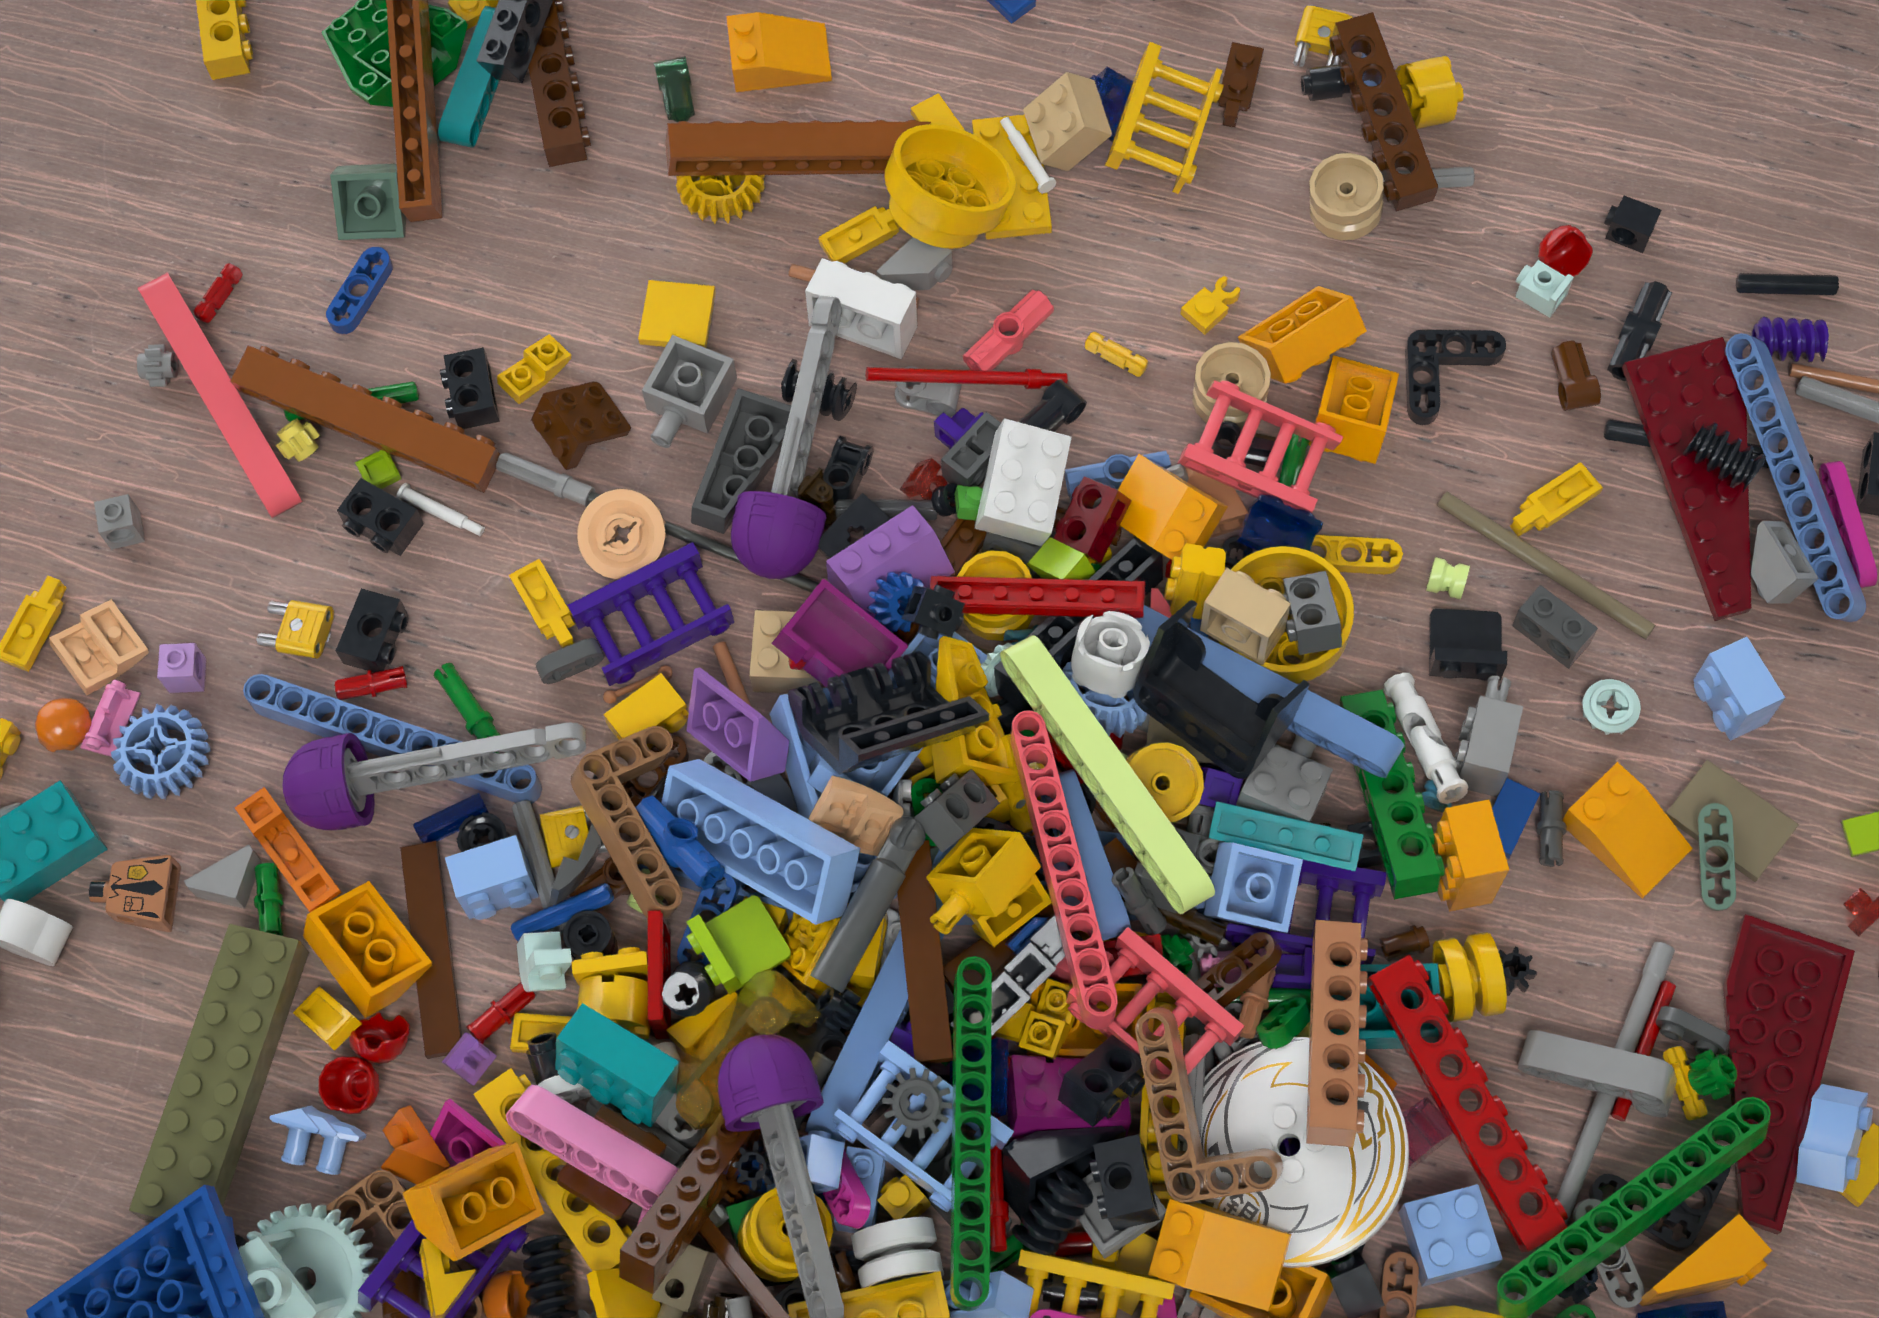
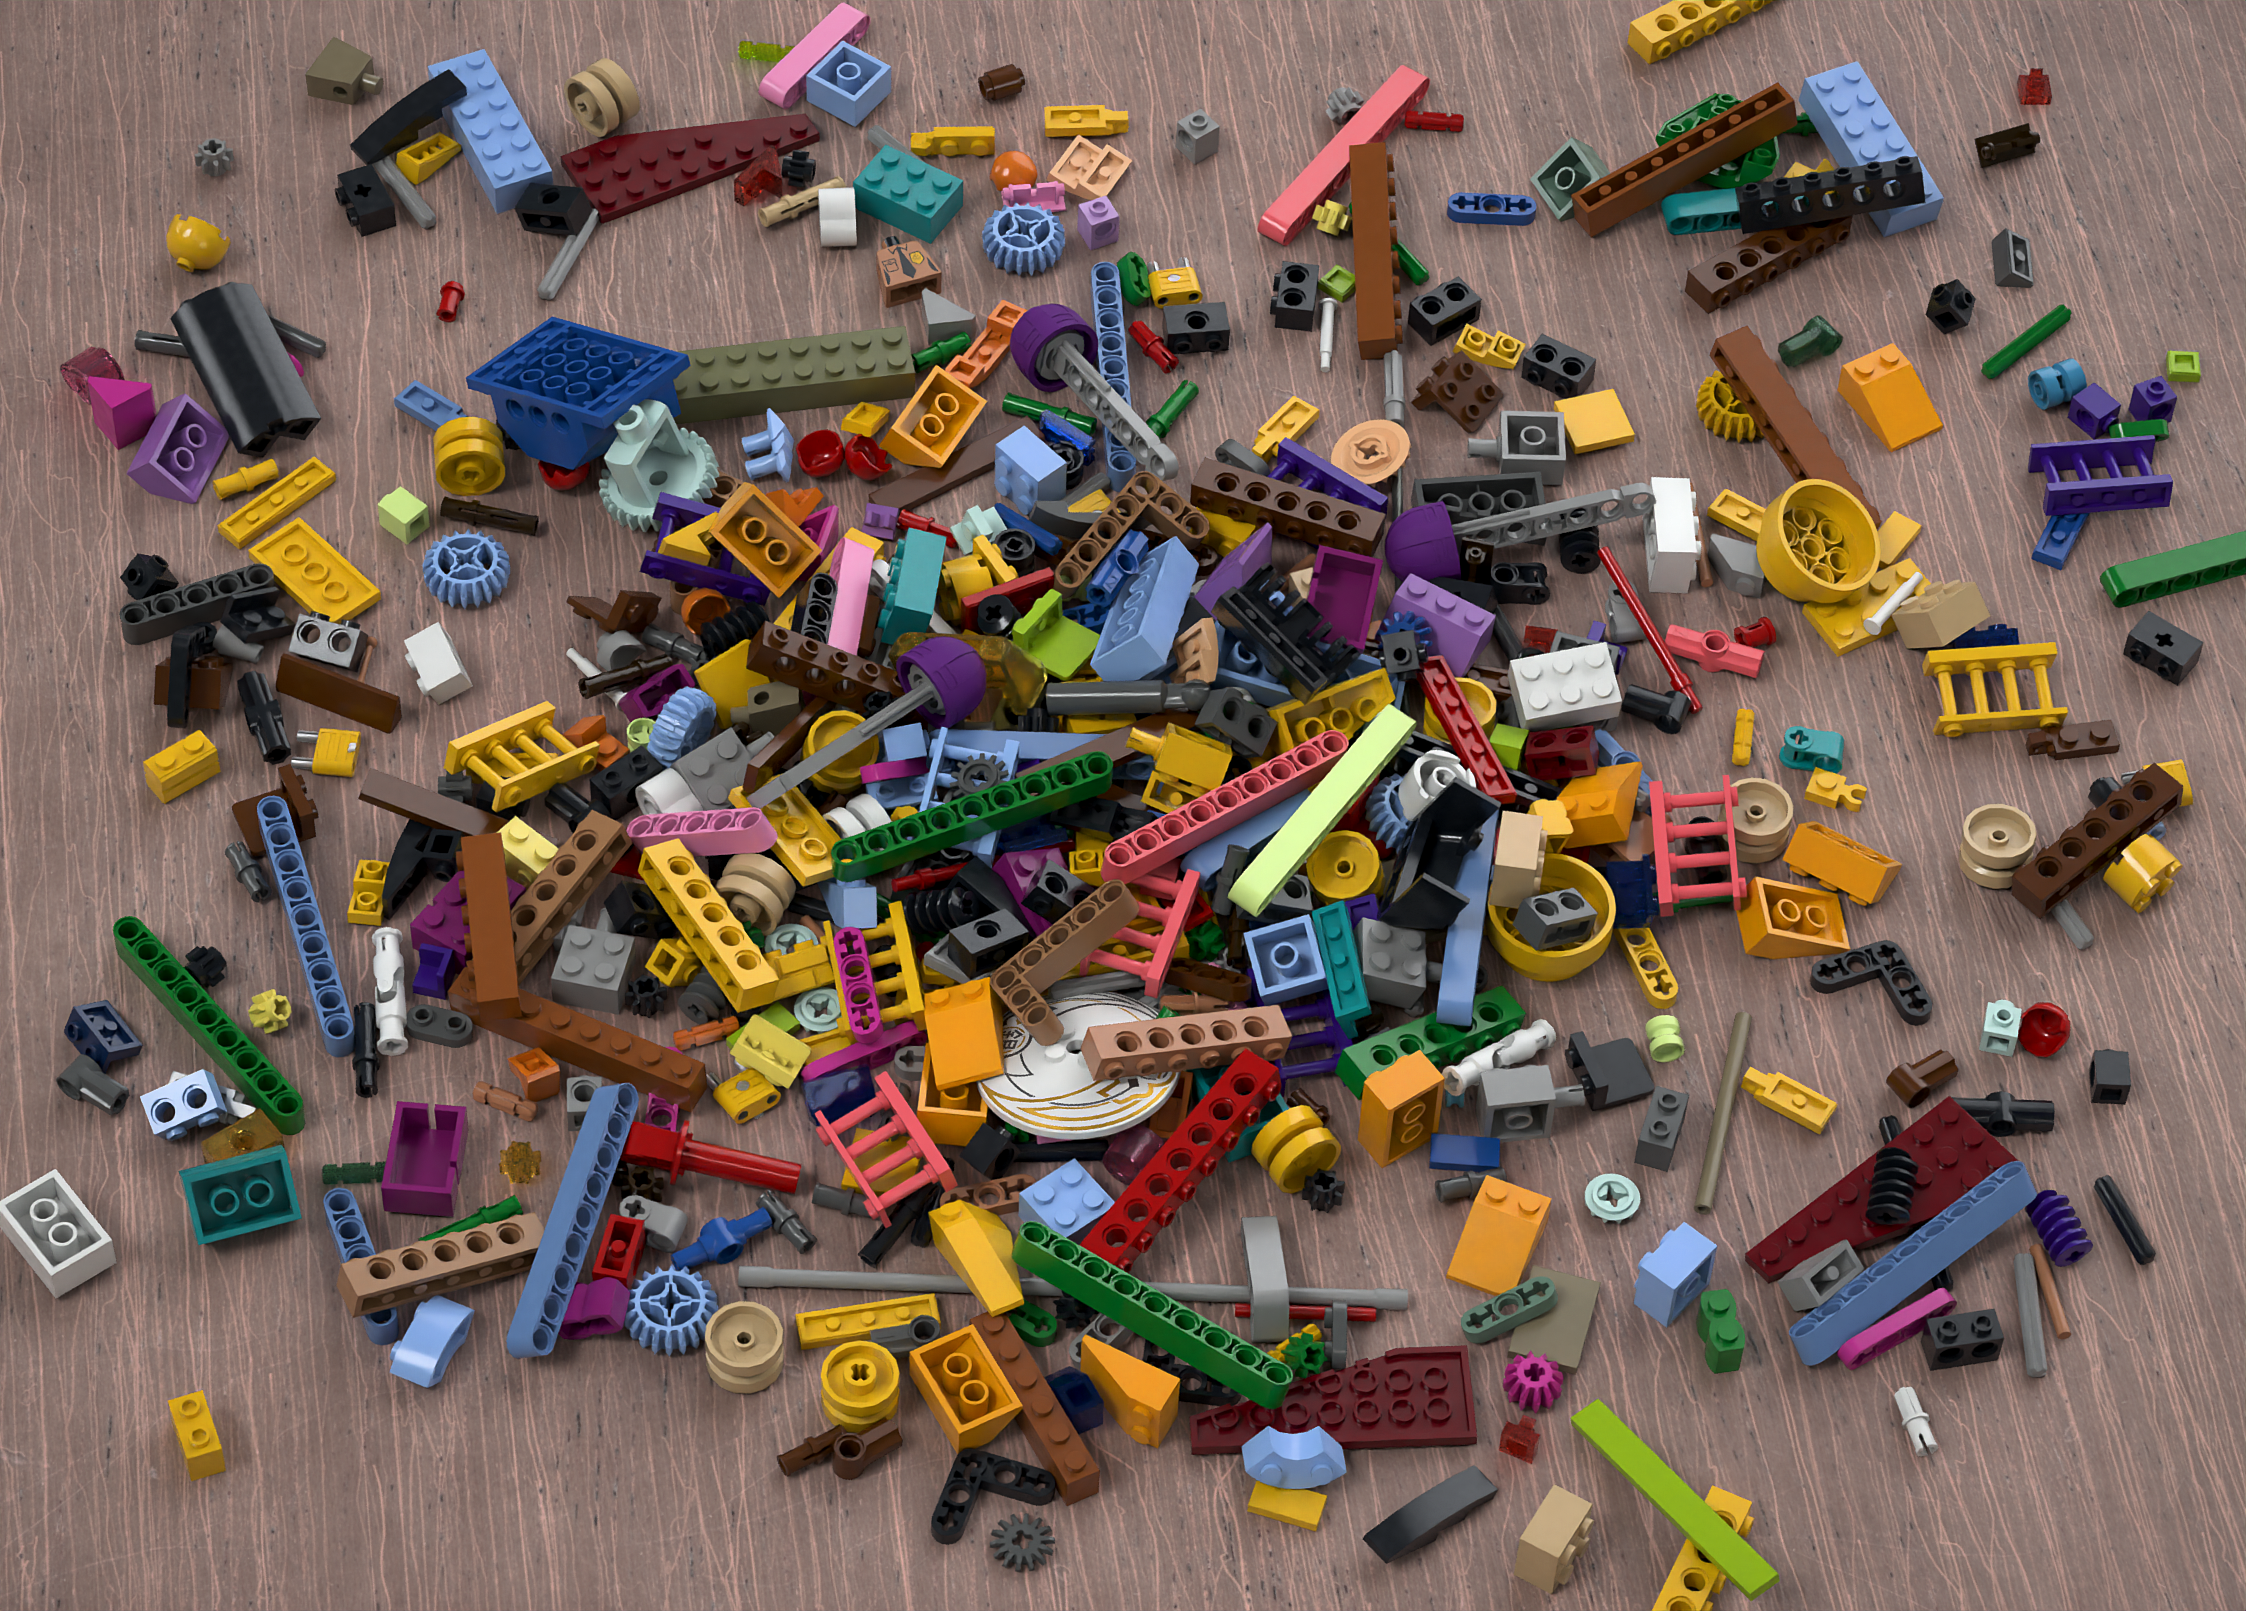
camera: 60 degrees right, 15 degrees down
(274, 663) = (1134, 278): none -> green beam
(403, 829) = (1027, 407): none -> green pin
(592, 311) = (1558, 367): none -> black brick
(597, 1175) = (815, 607): none -> black beam
(651, 648) = (1286, 508): none -> reddish brown brick
(1003, 289) = (1756, 634): none -> red bush
(1163, 301) = (1813, 749): none -> teal piece
(1792, 874) = (1533, 1381): none -> dark pink gear
(1811, 679) = (1720, 1331): none -> green brick

